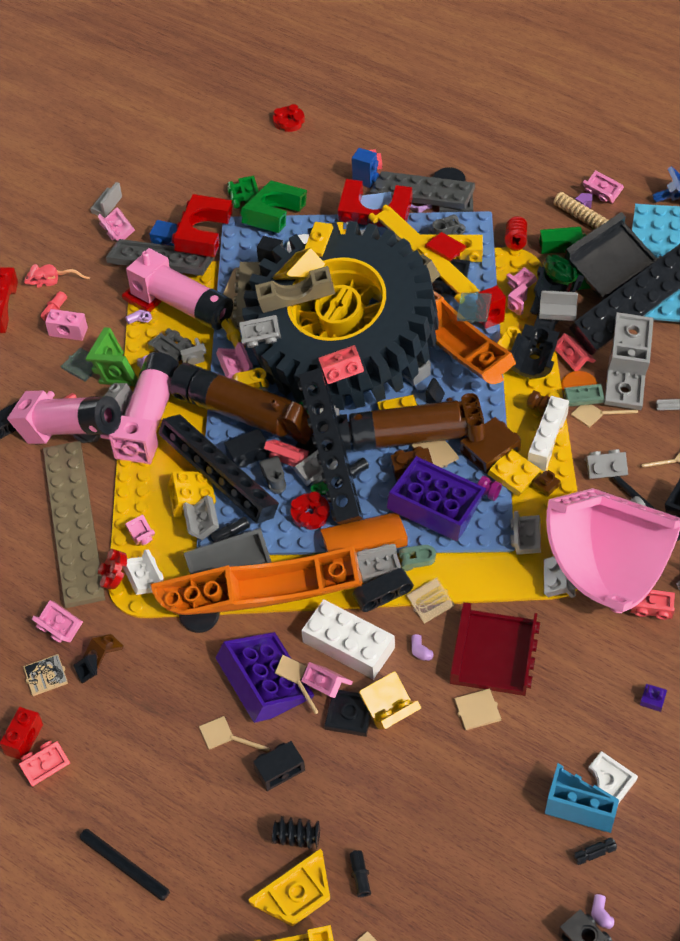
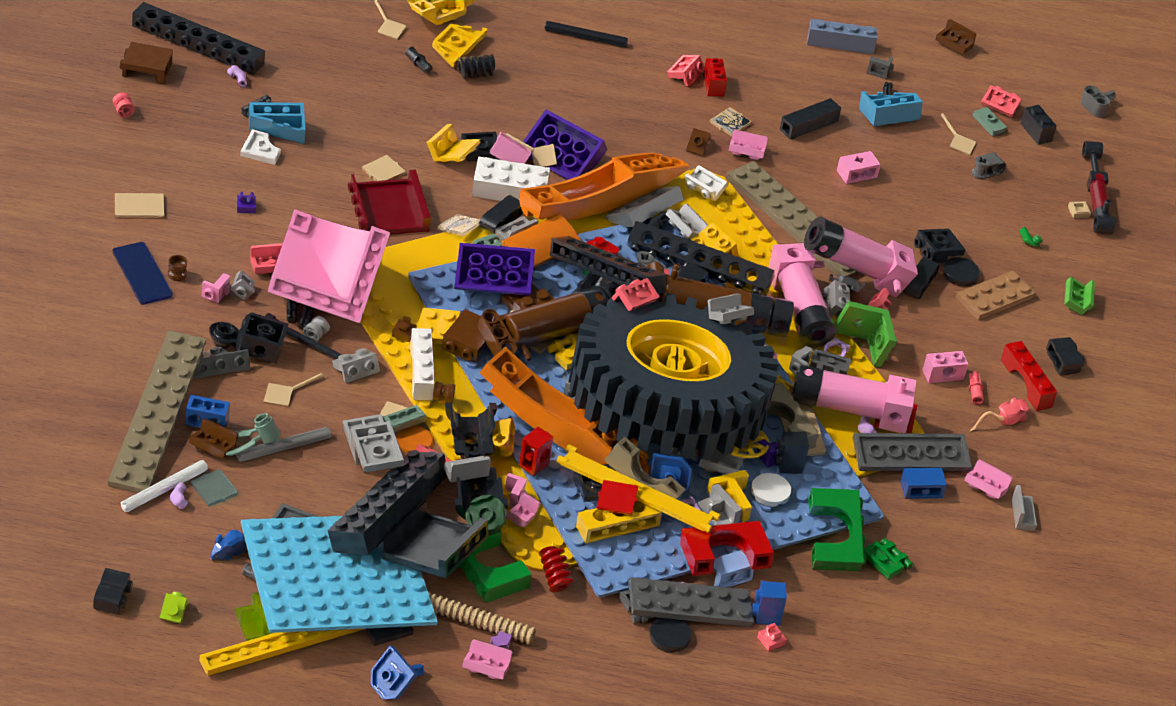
camera: 145 degrees right, 10 degrees down
(78, 365) = (906, 347): clear light blue piece -> none
(86, 668) = (702, 124): black slope -> none
(112, 569) = (728, 174): red plate -> none
(140, 530) = (730, 212): bright pink bracket -> none
(201, 209) = (895, 457): red arch -> none
(218, 732) = (572, 115): tan piece -> none
(277, 296) = (737, 331): dark tan arch -> none
(279, 765) = (514, 100): black brick -> none
(282, 114) = (911, 662): red plate -> none
(299, 265) = (731, 356): yellow slope -> none
(319, 237) = (732, 388): yellow plate -> none
(419, 650) = (444, 189): lavender arm -> none
(434, 392) = (548, 370): black slope -> none
(448, 226) = (632, 541): dark grey piece -> none
(474, 307) = (549, 421): clear light blue piece -> none
(492, 488) = (457, 298): magenta wheel -> none
(526, 534) = (403, 279): light grey bracket -> none

